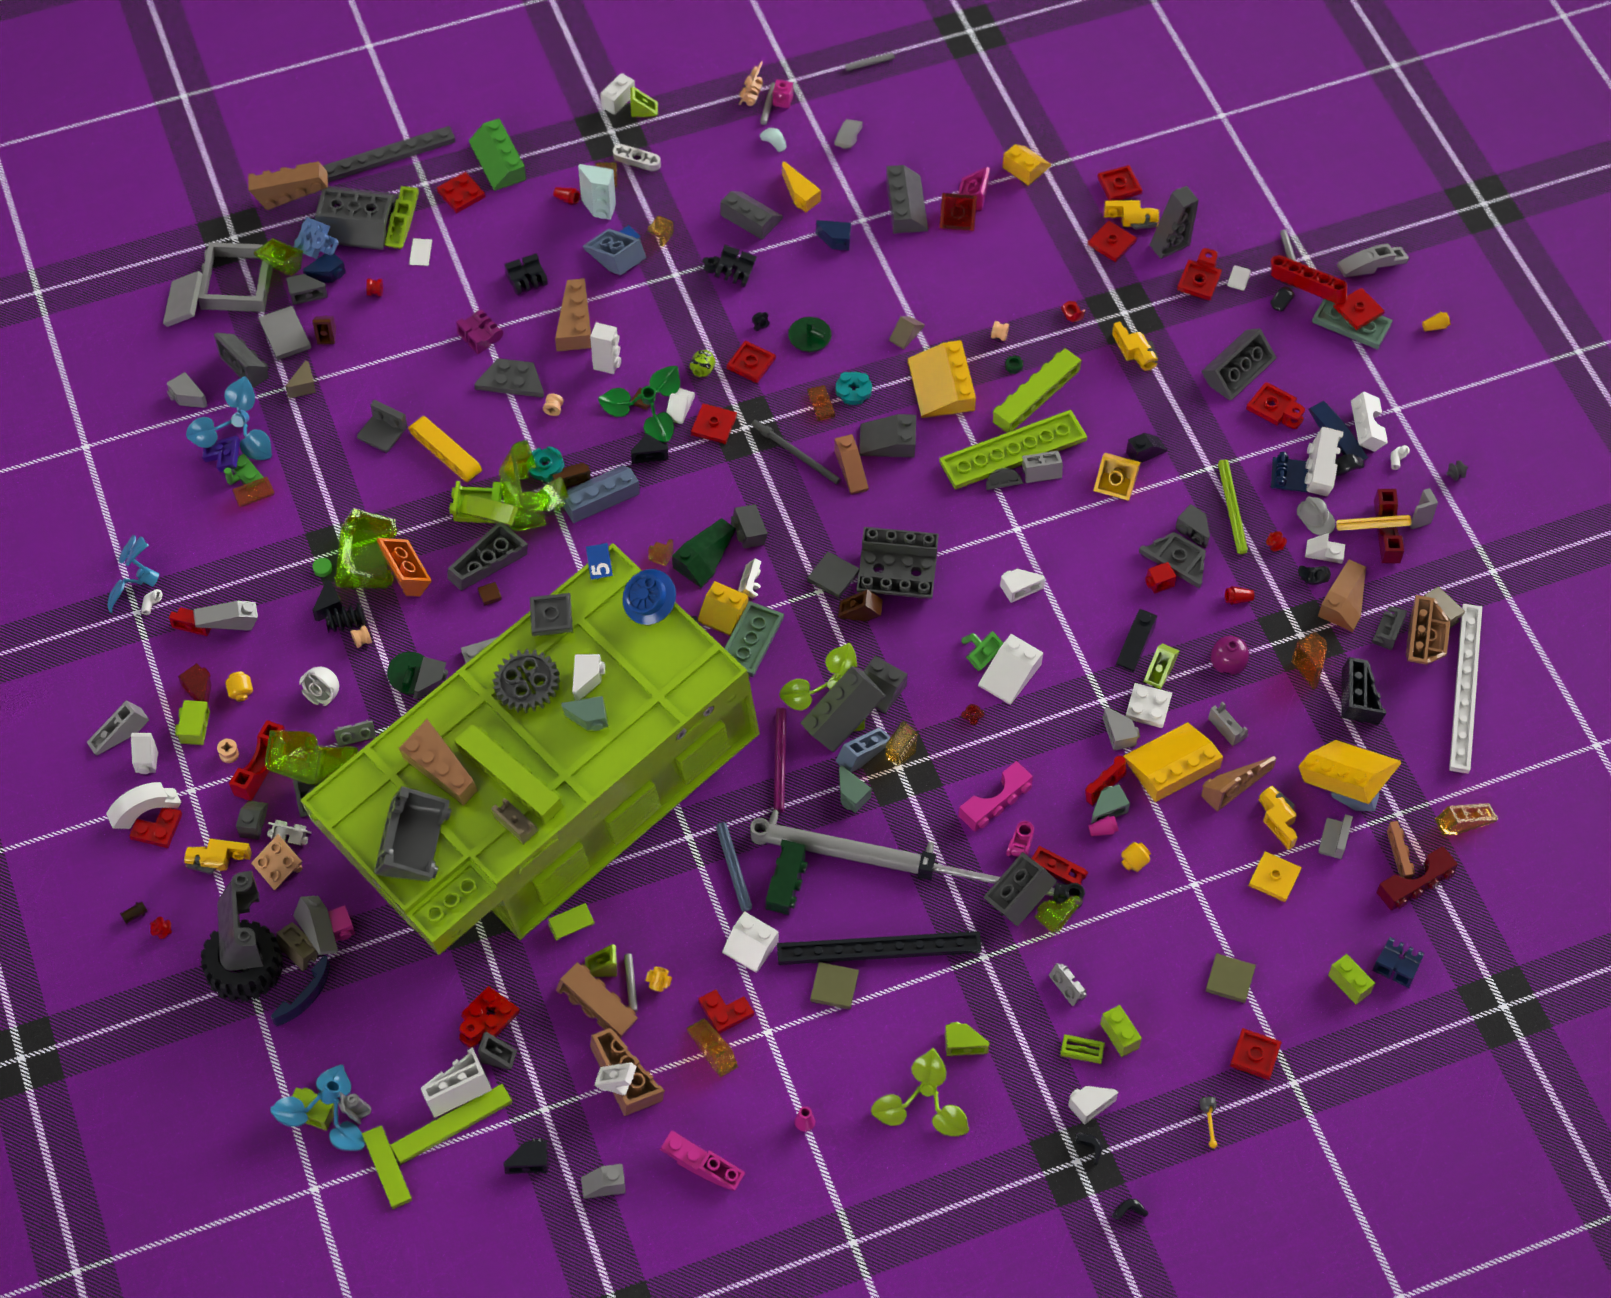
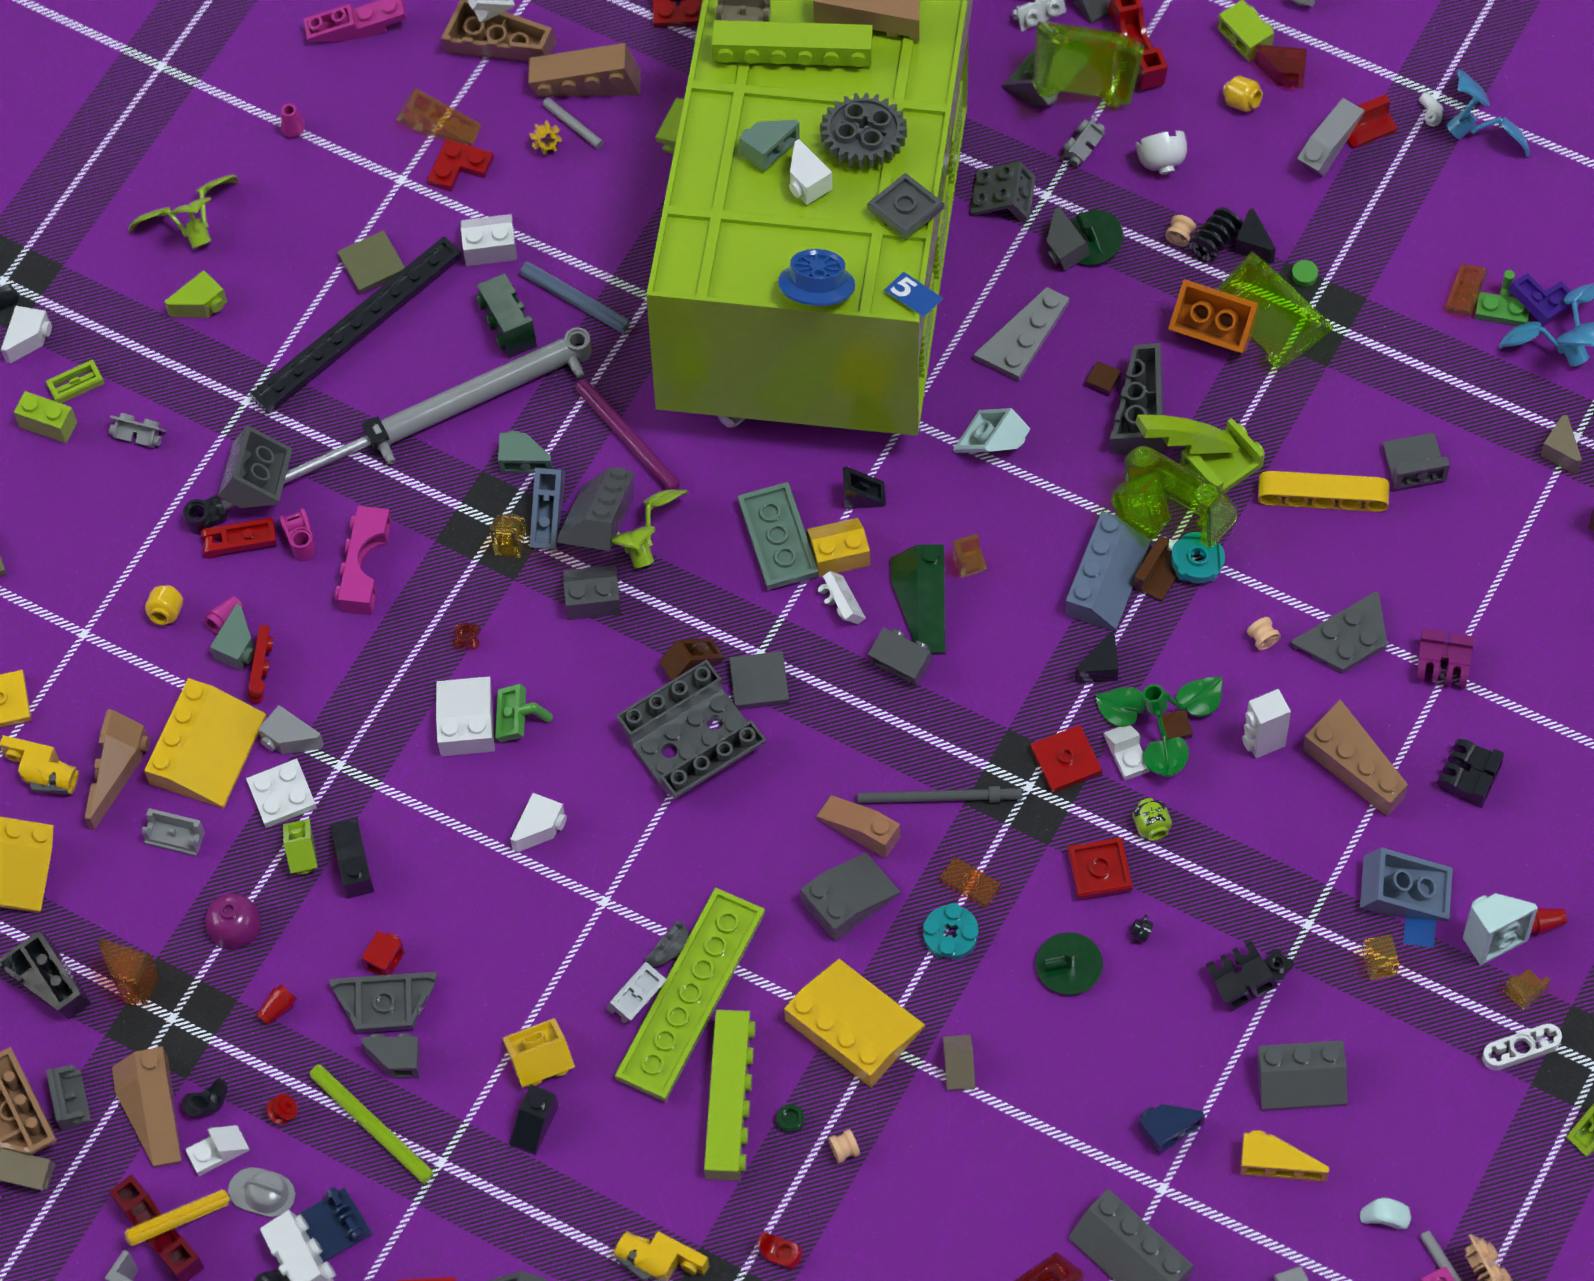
camera: 145 degrees right, 5 degrees up
(232, 751) = (1184, 39): light nougat wheel -> none
(603, 962) = (613, 115): lime slope -> none
(1056, 915) = (198, 479): clear neon green arch -> none

